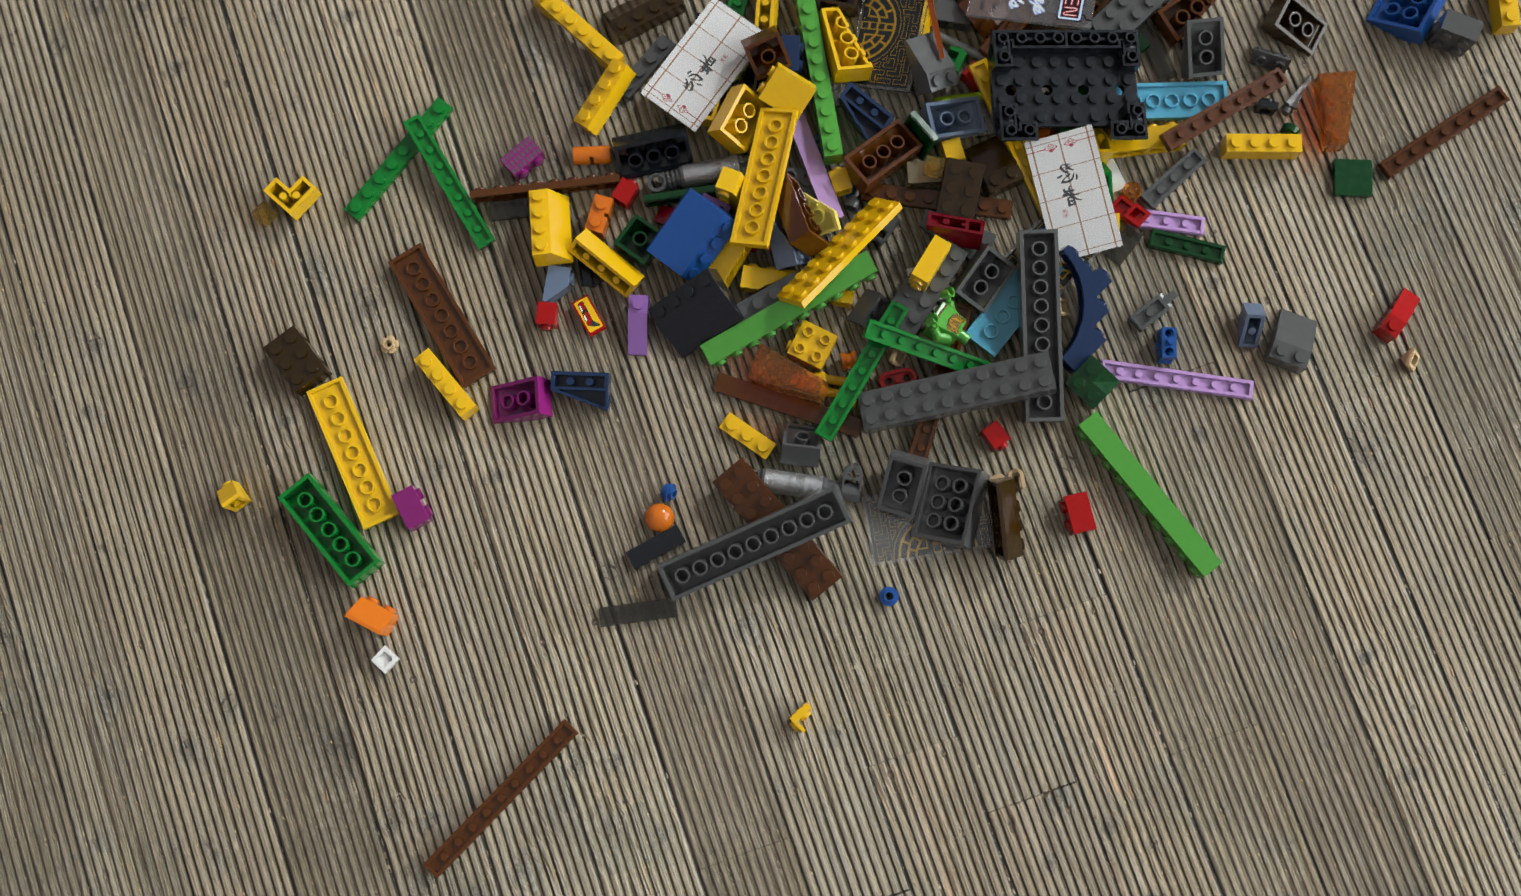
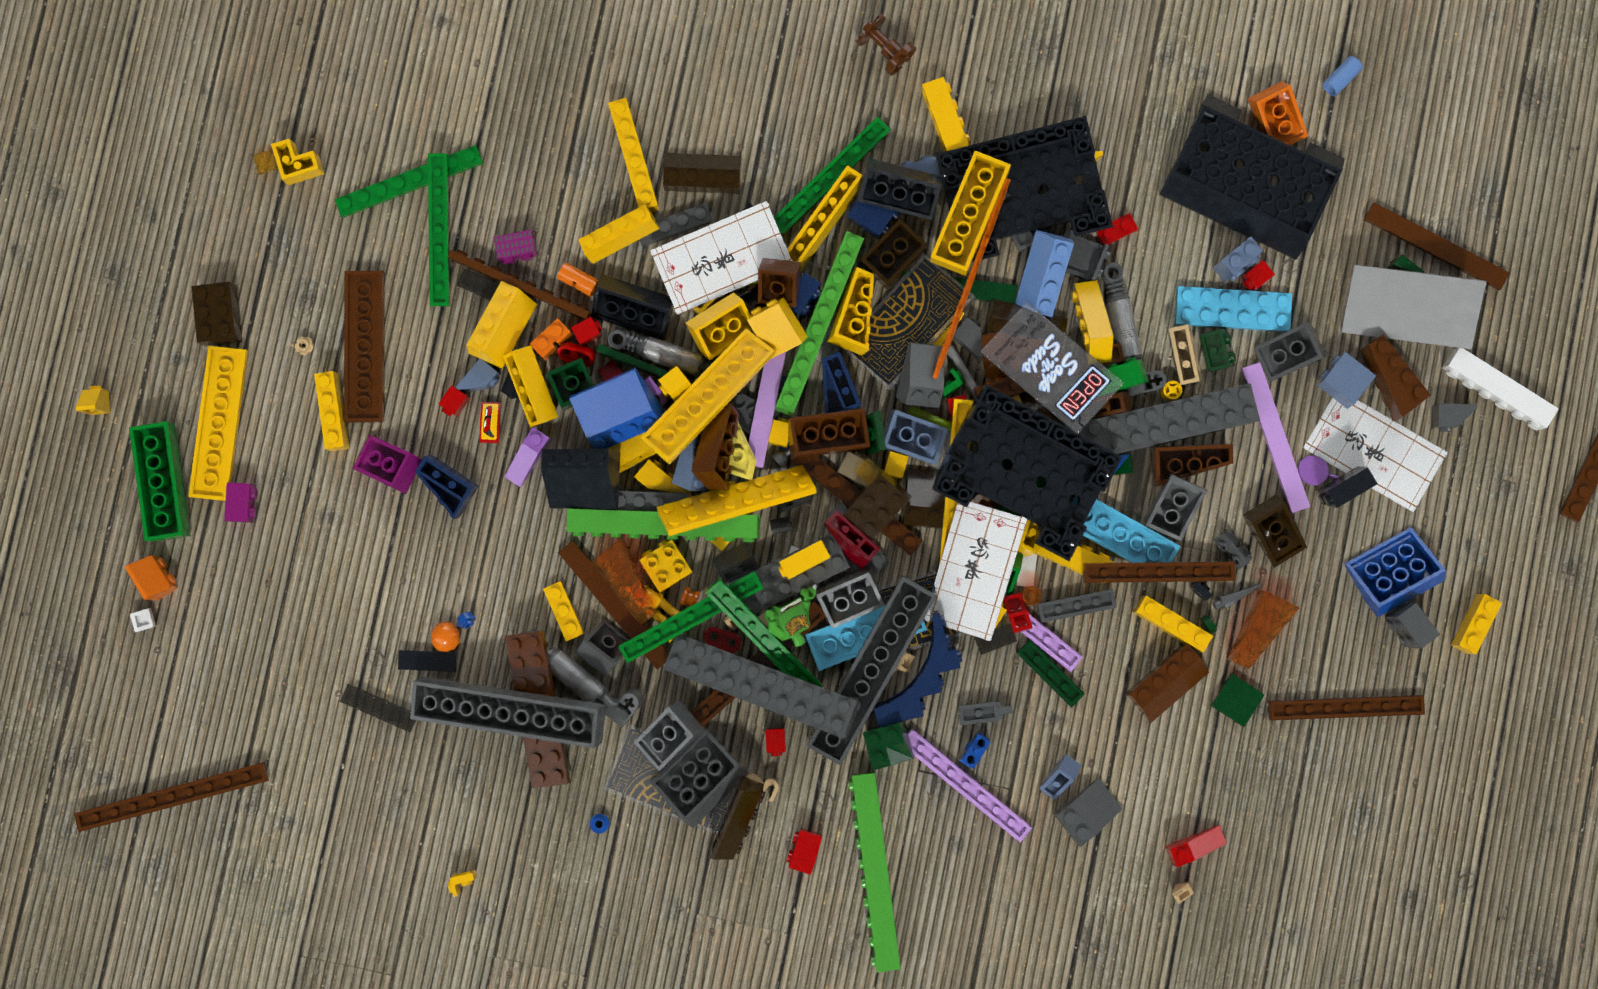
camera: 30 degrees right, 5 degrees up
(626, 214) = (576, 352): none -> red plate
(887, 258) = (780, 525): none -> dark grey slope
(1287, 195) = (1168, 682): none -> reddish brown slope

